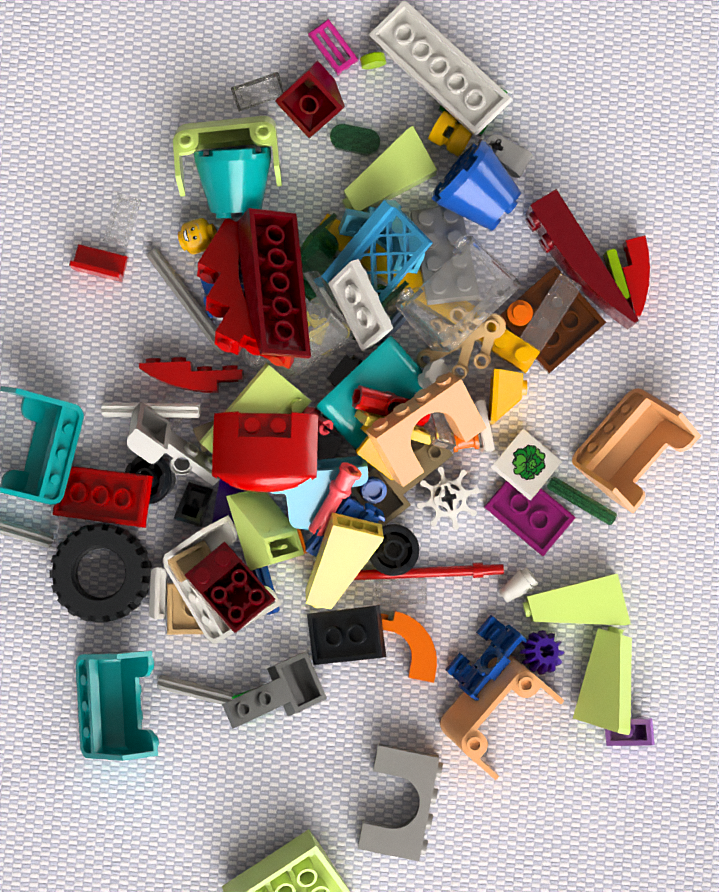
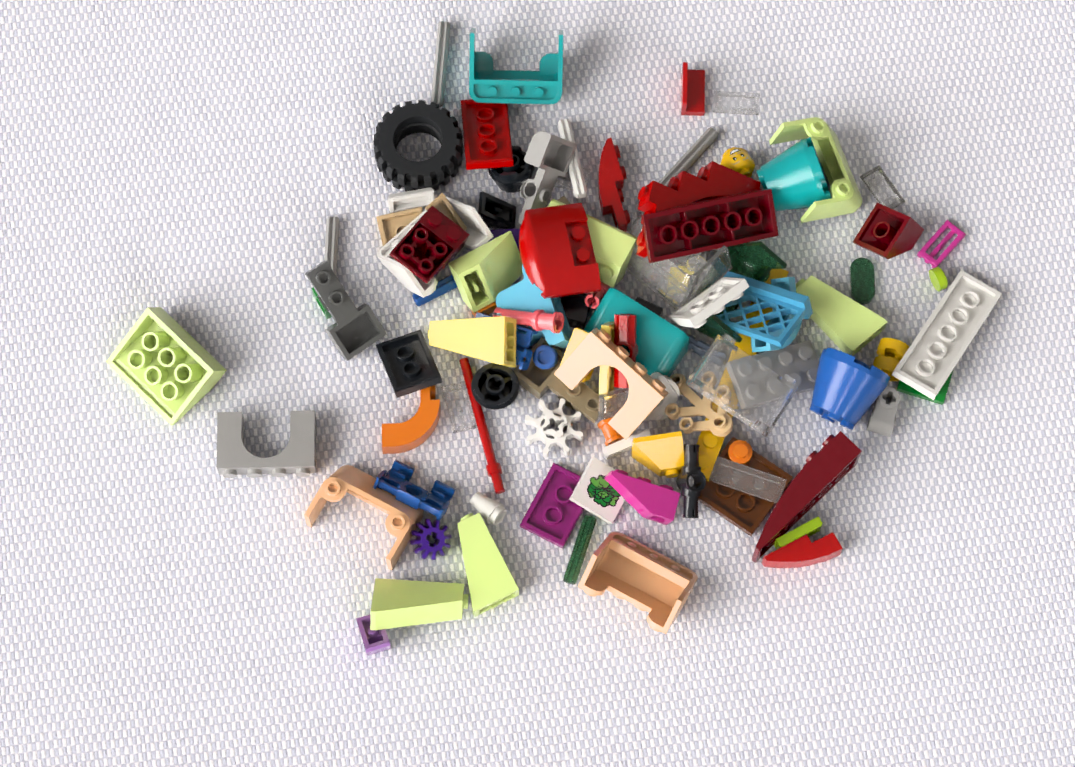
camera: 75 degrees right, 15 degrees down
(111, 705) = (305, 182): teal windscreen -> none
(531, 370) = (691, 468): none -> black pin
(550, 417) = (648, 499): none -> dark pink slope

